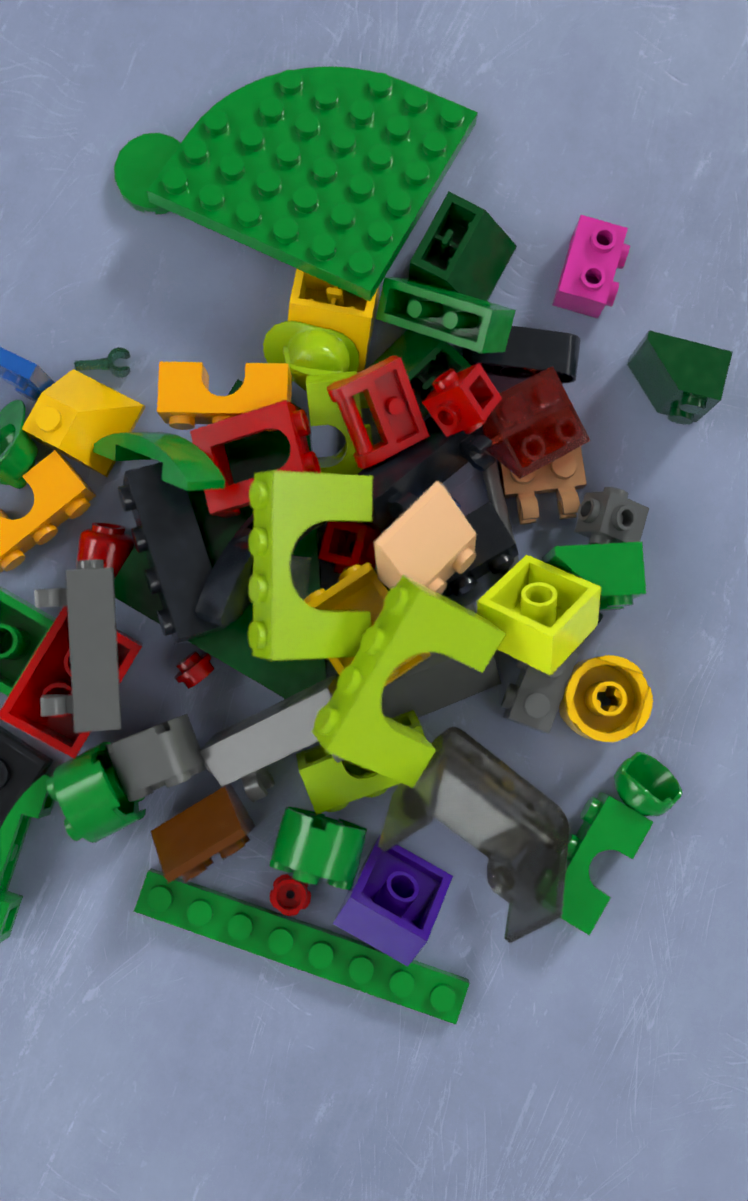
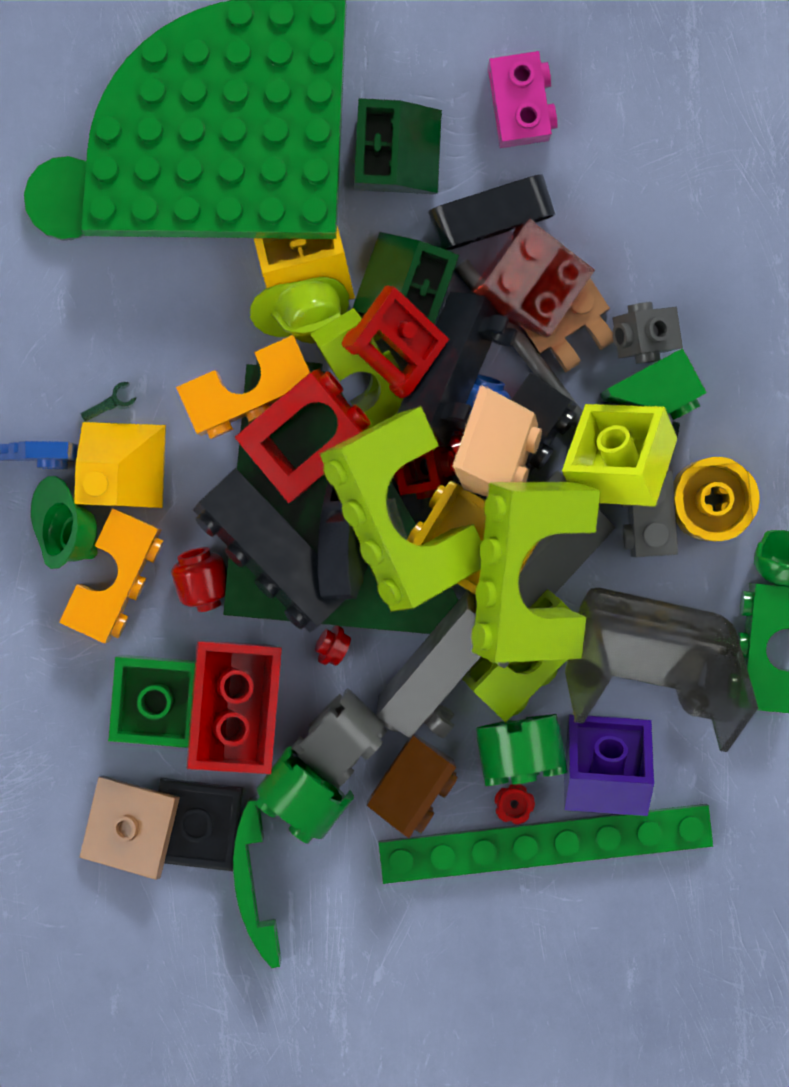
camera: 25 degrees left, 5 degrees up
(92, 648) = (244, 669): dark grey brick -> none
(182, 461) = (247, 469): green slope -> none
(445, 315) = (409, 217): green brick -> none
(454, 404) = (464, 295): red brick -> none
(680, 375) = (651, 171): dark green slope -> none

